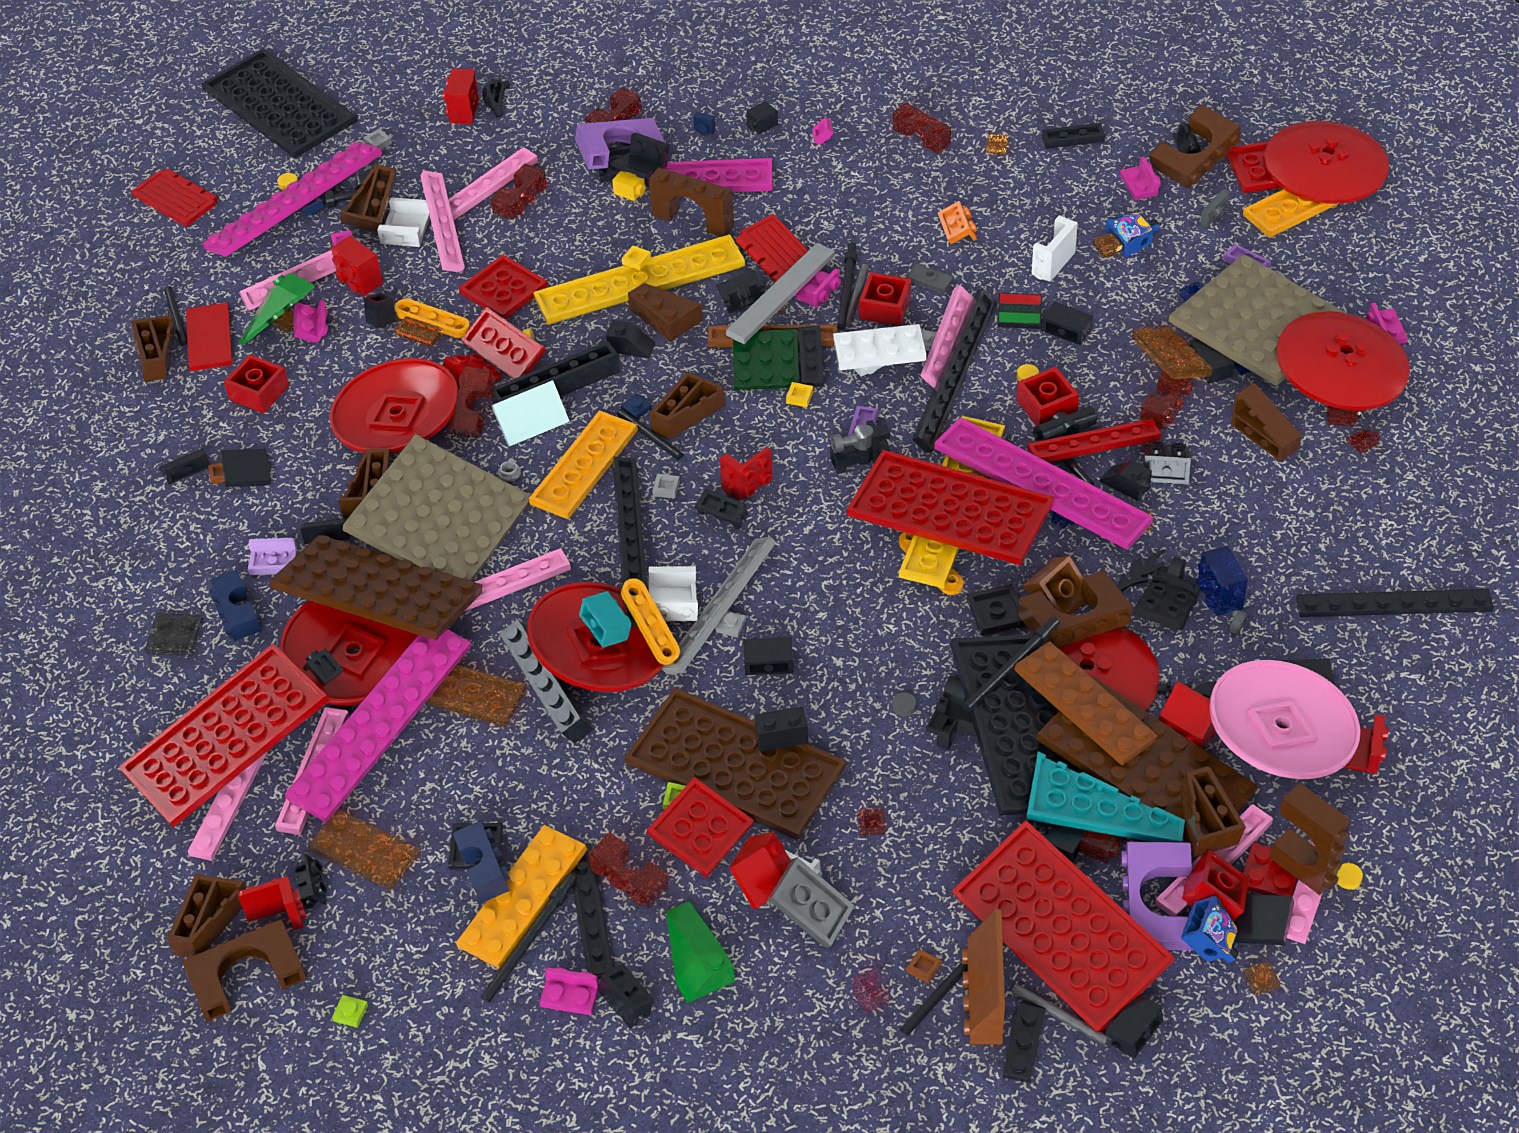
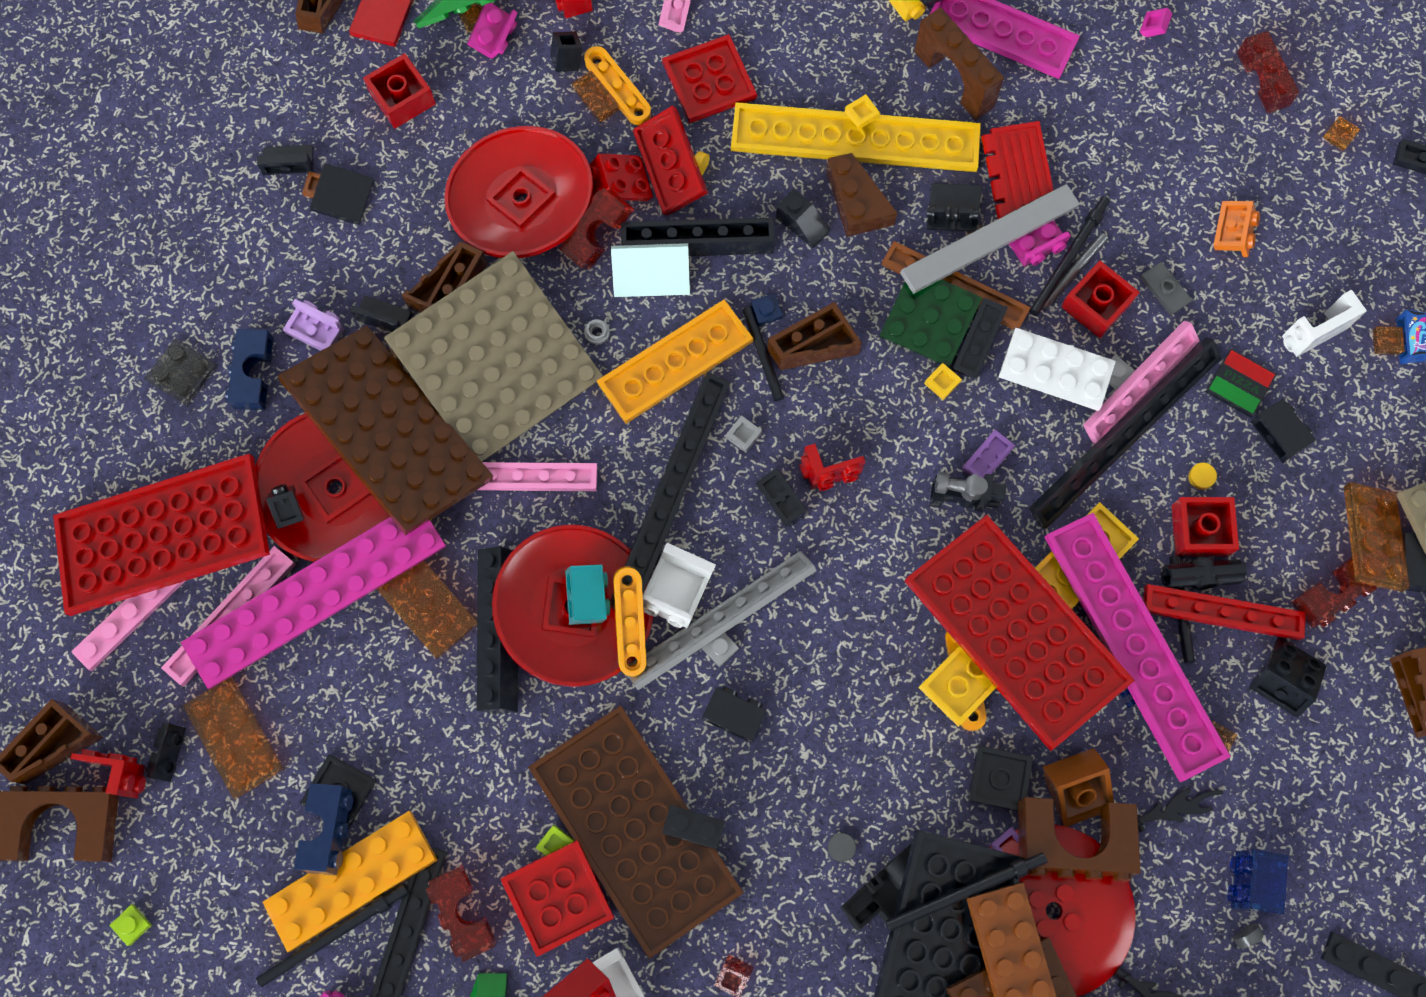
camera: 25 degrees right, 25 degrees up
(1128, 479) = (1232, 678): black slope -> none
(1168, 596) = (1189, 865): black plate -> none

